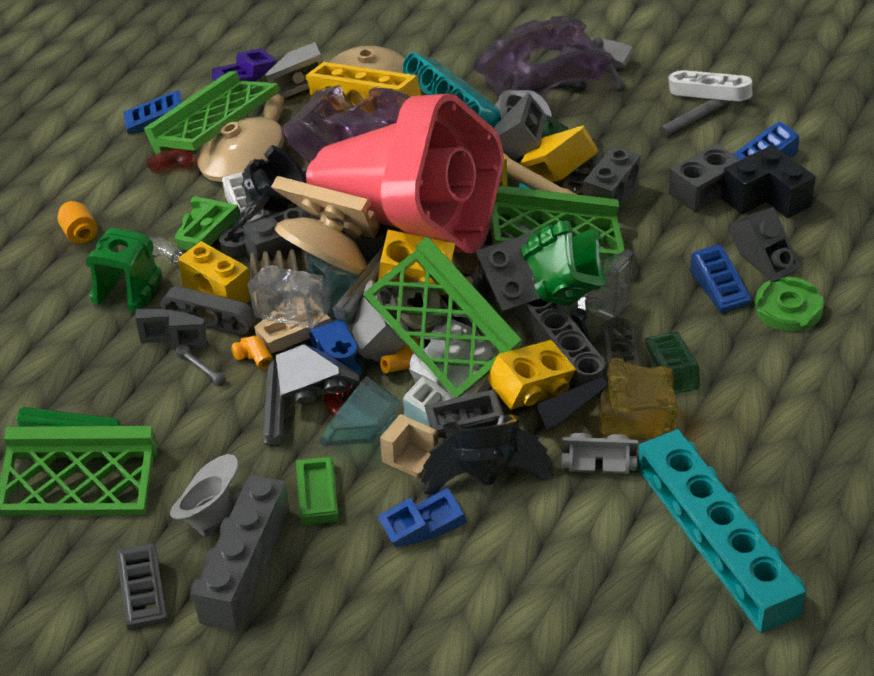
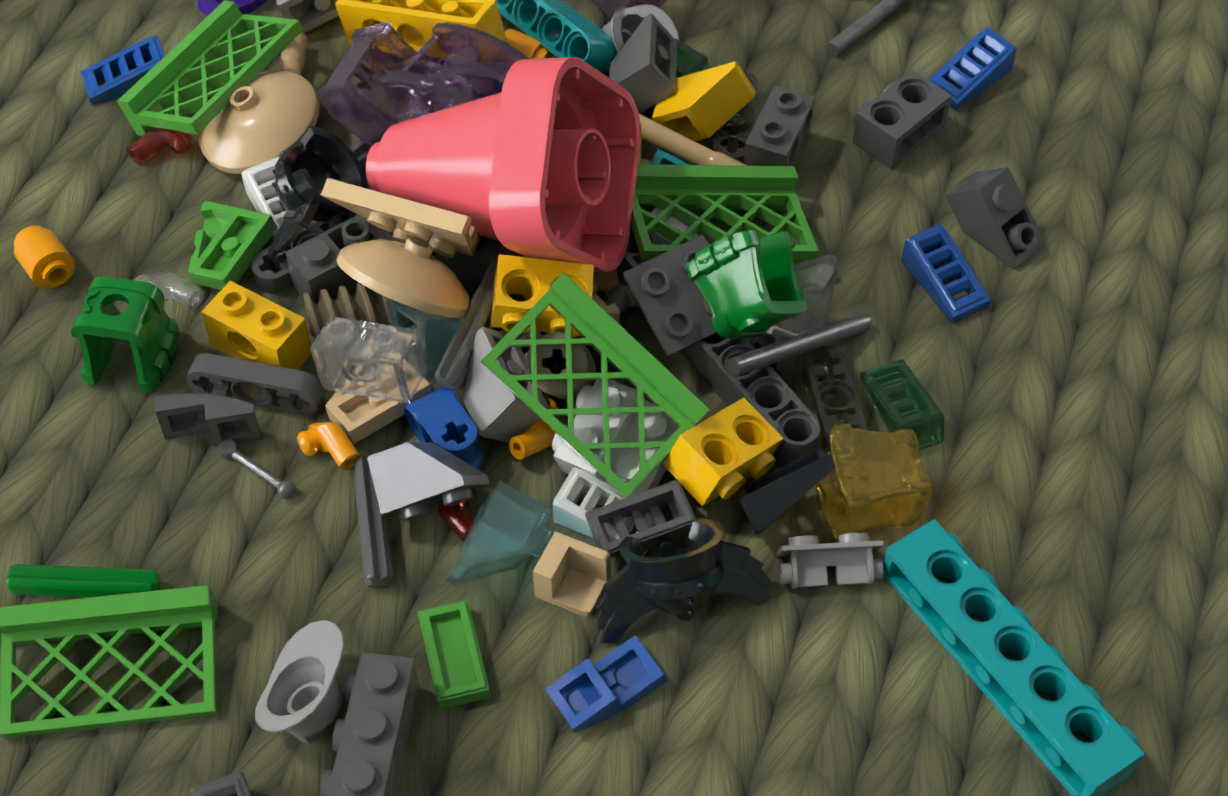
camera: 10 degrees left, 10 degrees up
(600, 312) = (798, 344): none -> flat silver bar
(768, 178) = (987, 115): black brick -> none
(789, 304) = (1040, 303): bright green tile -> none

